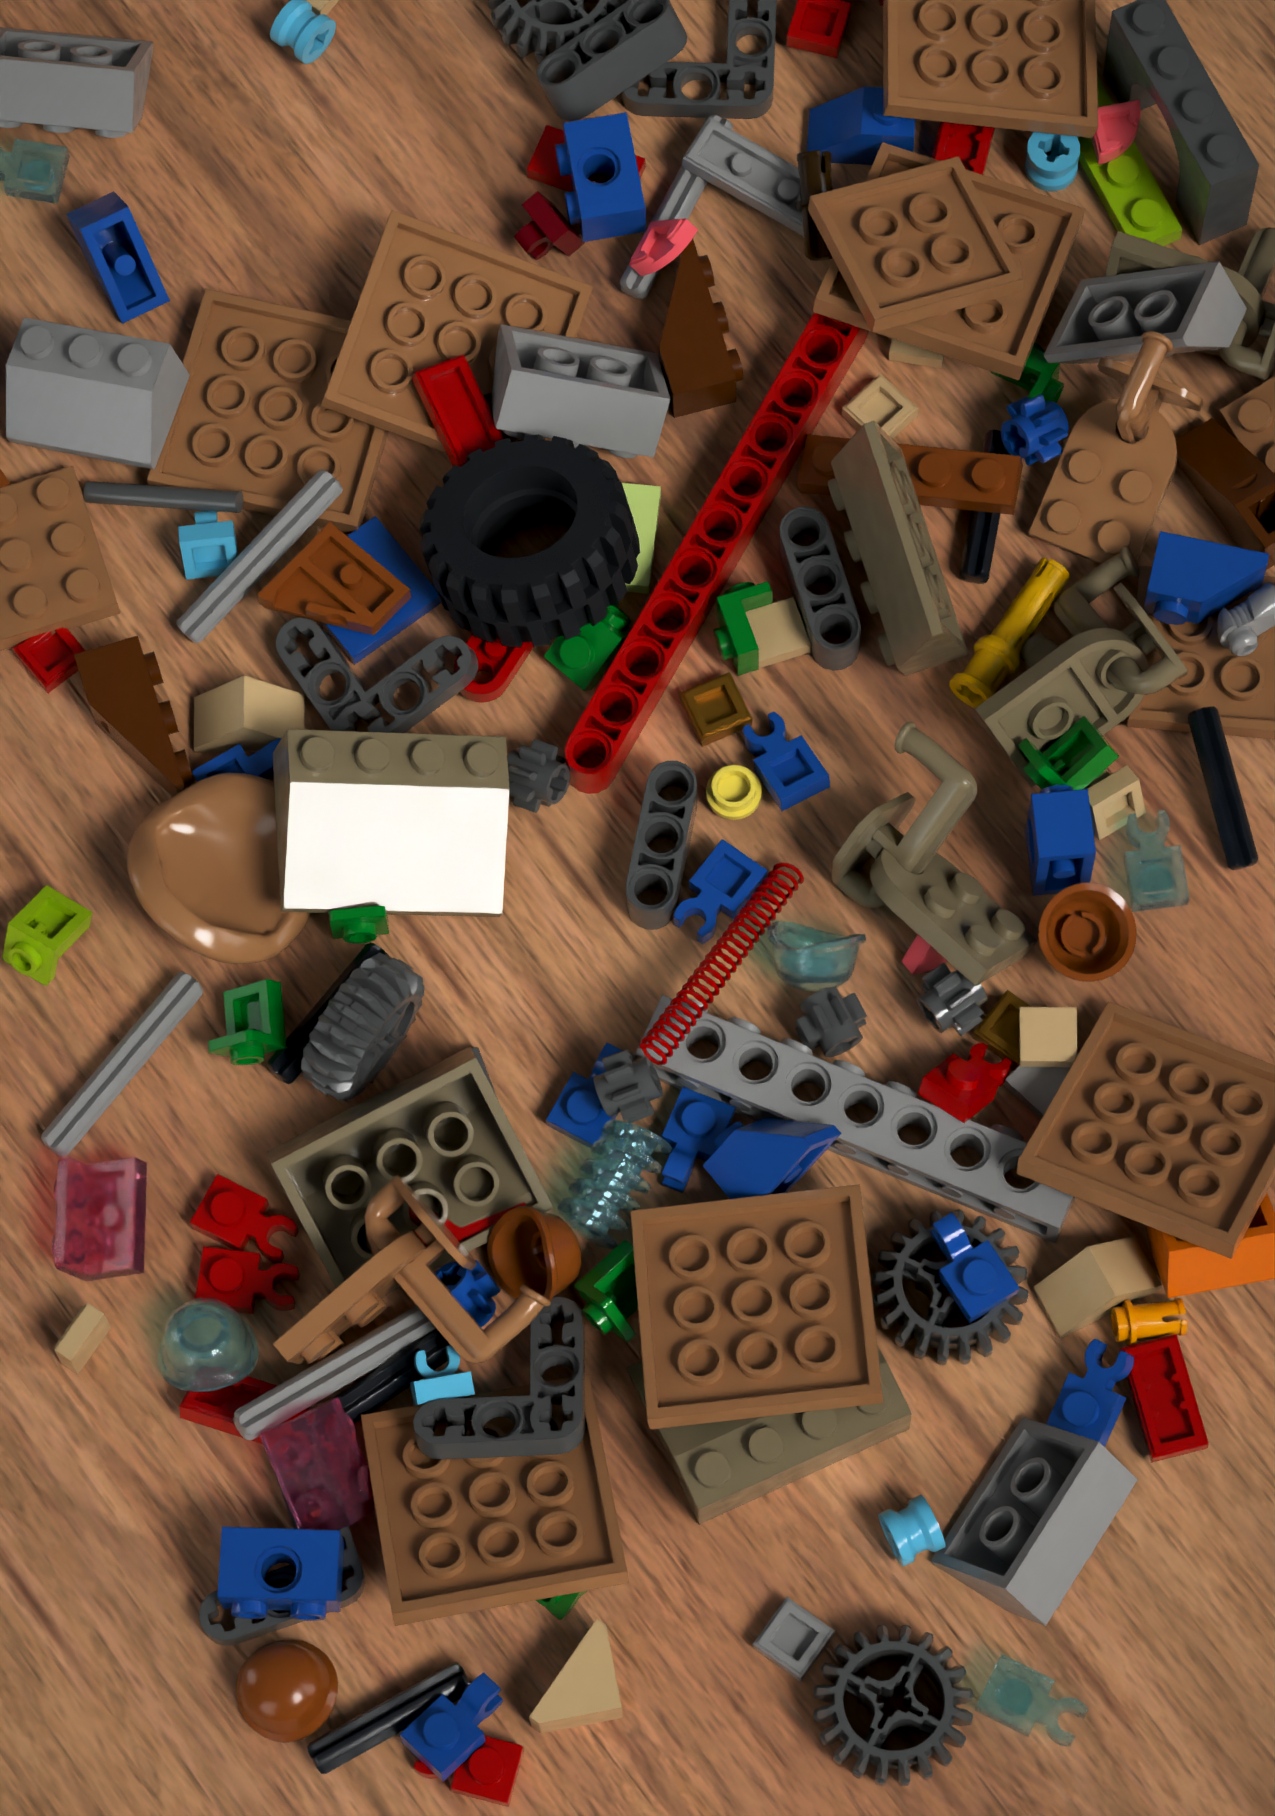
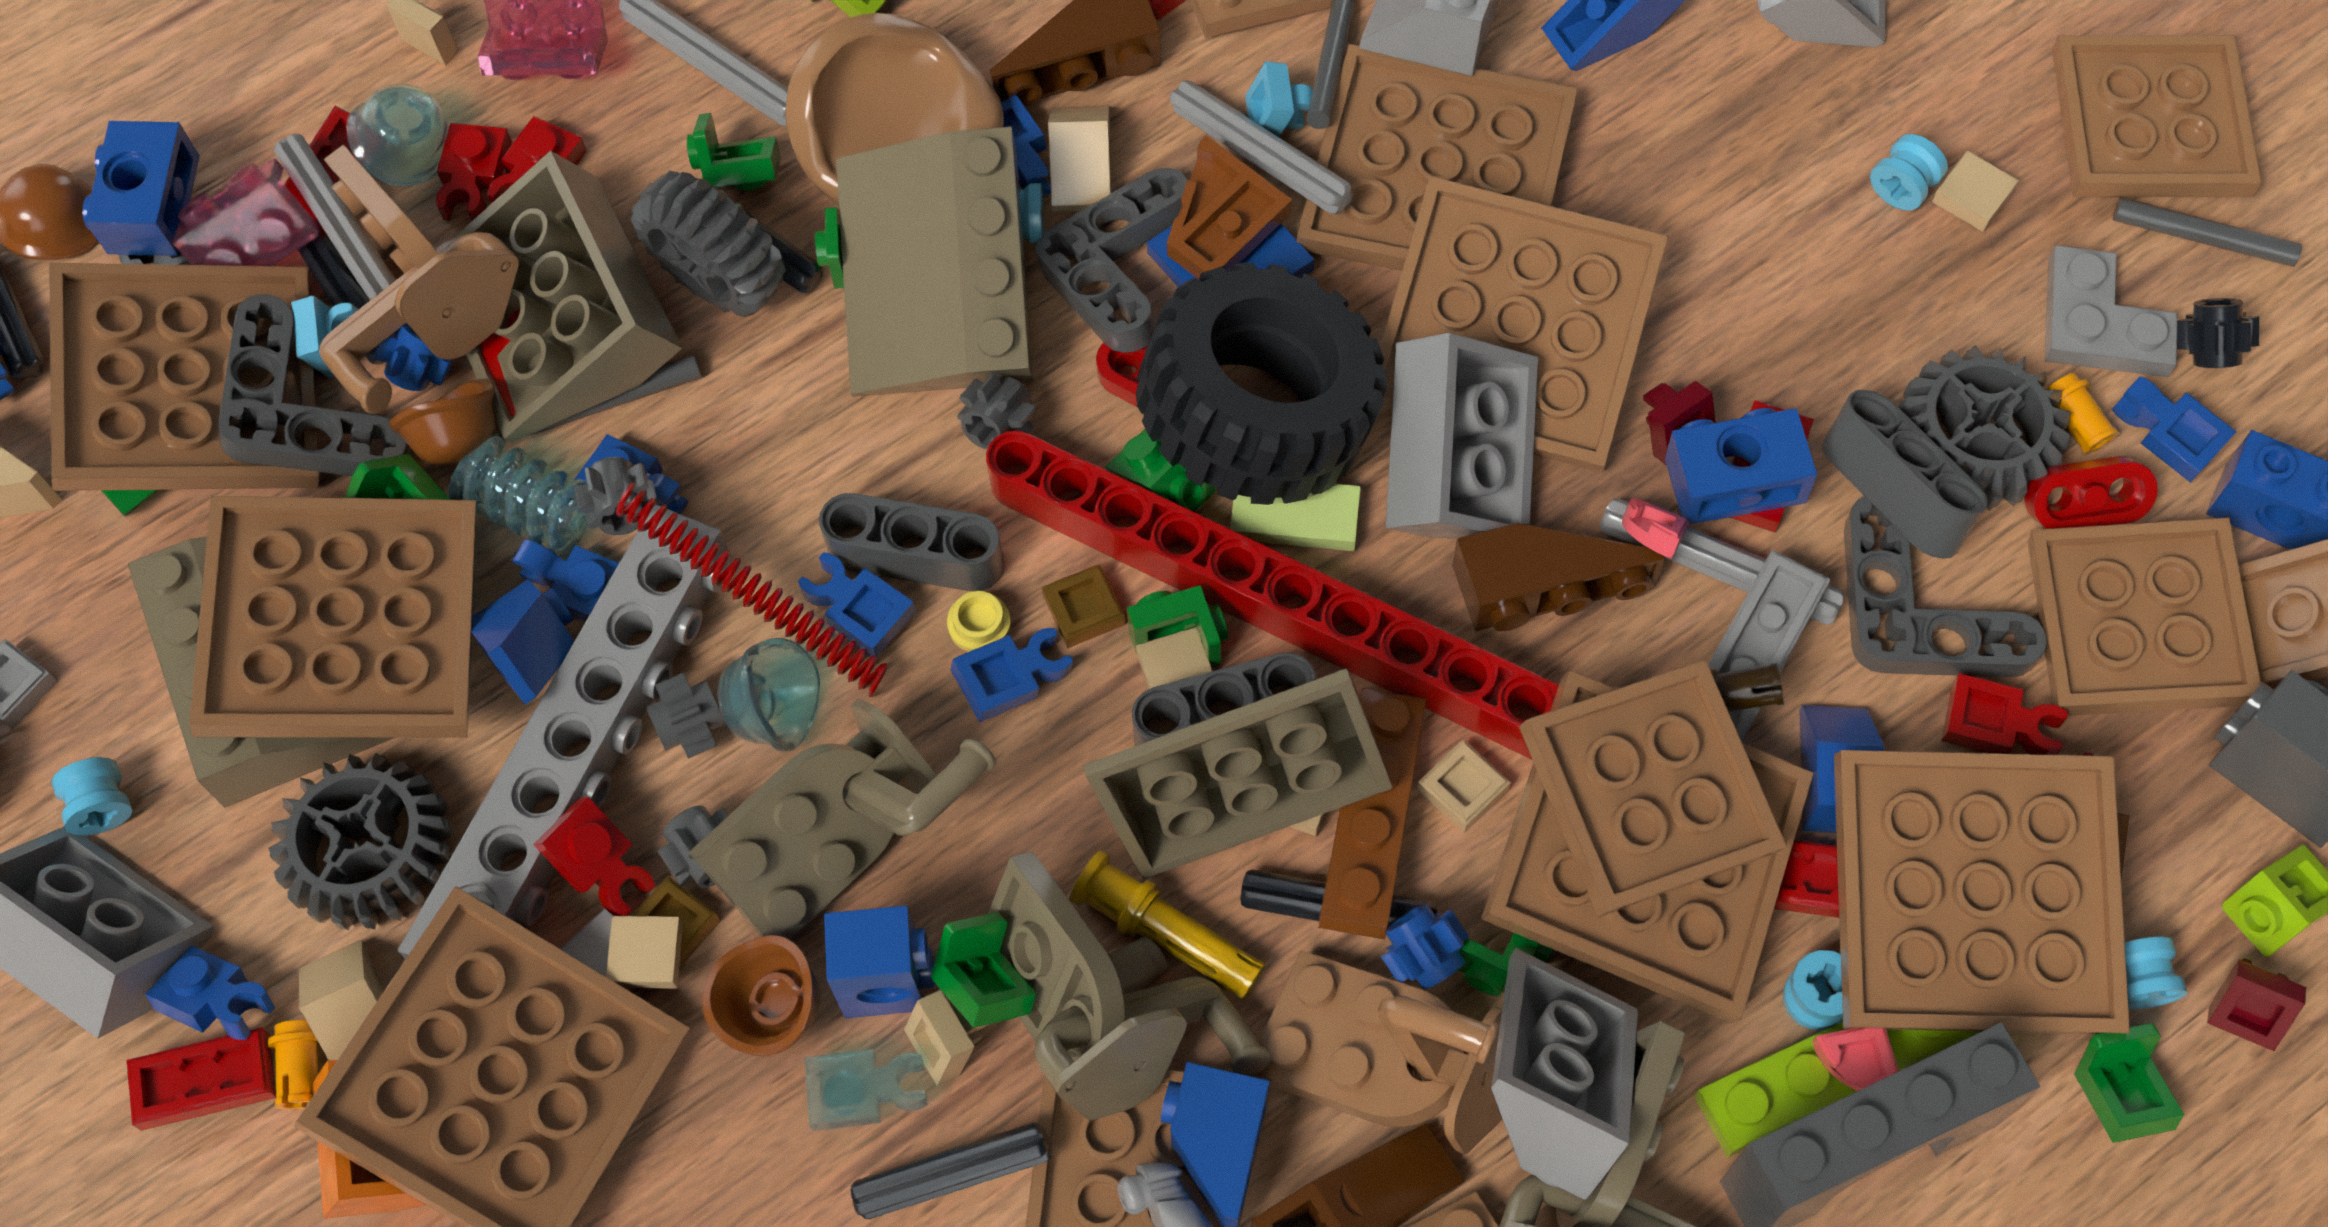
camera: 90 degrees right, 5 degrees down
(456, 408) = (1433, 308): red tile -> none
(973, 1276) = (346, 848): blue plate -> none

